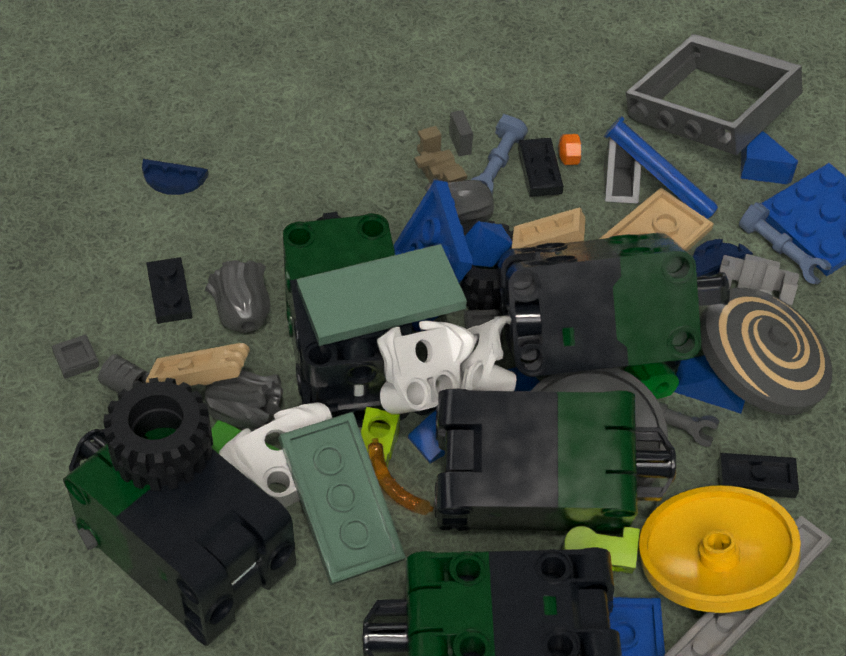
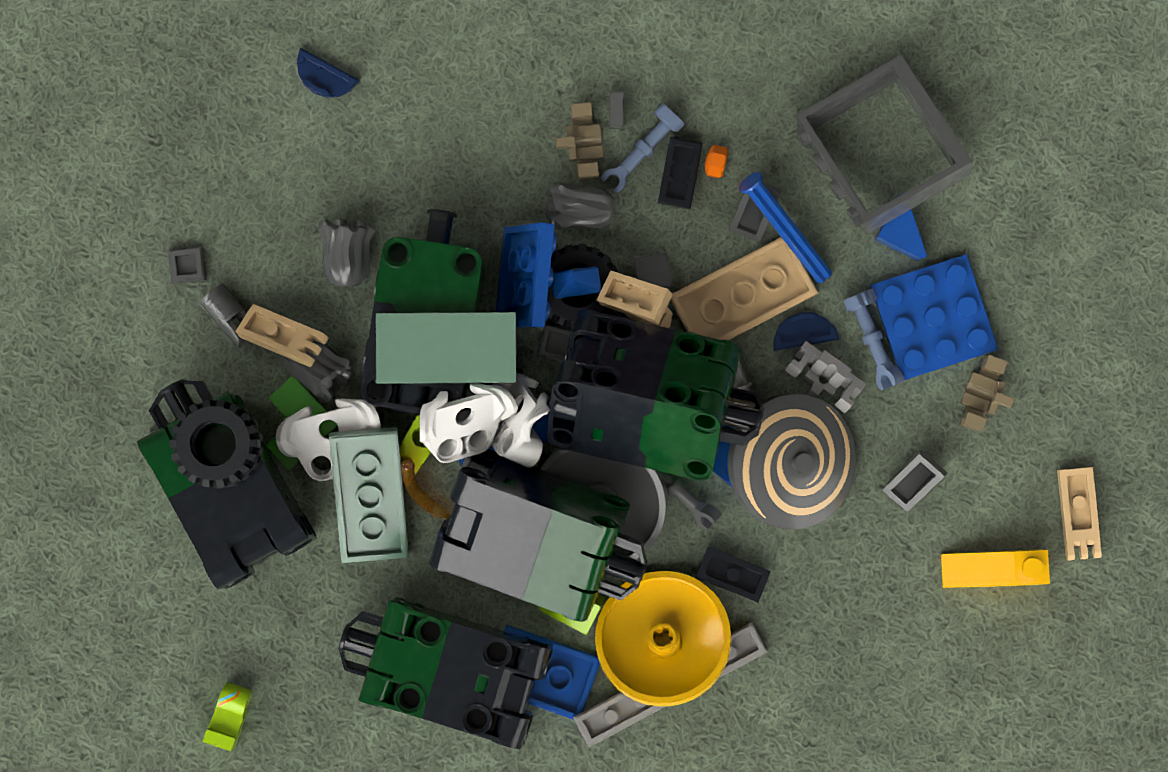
camera: 20 degrees right, 35 degrees up
(169, 290) = (286, 215): black plate -> none

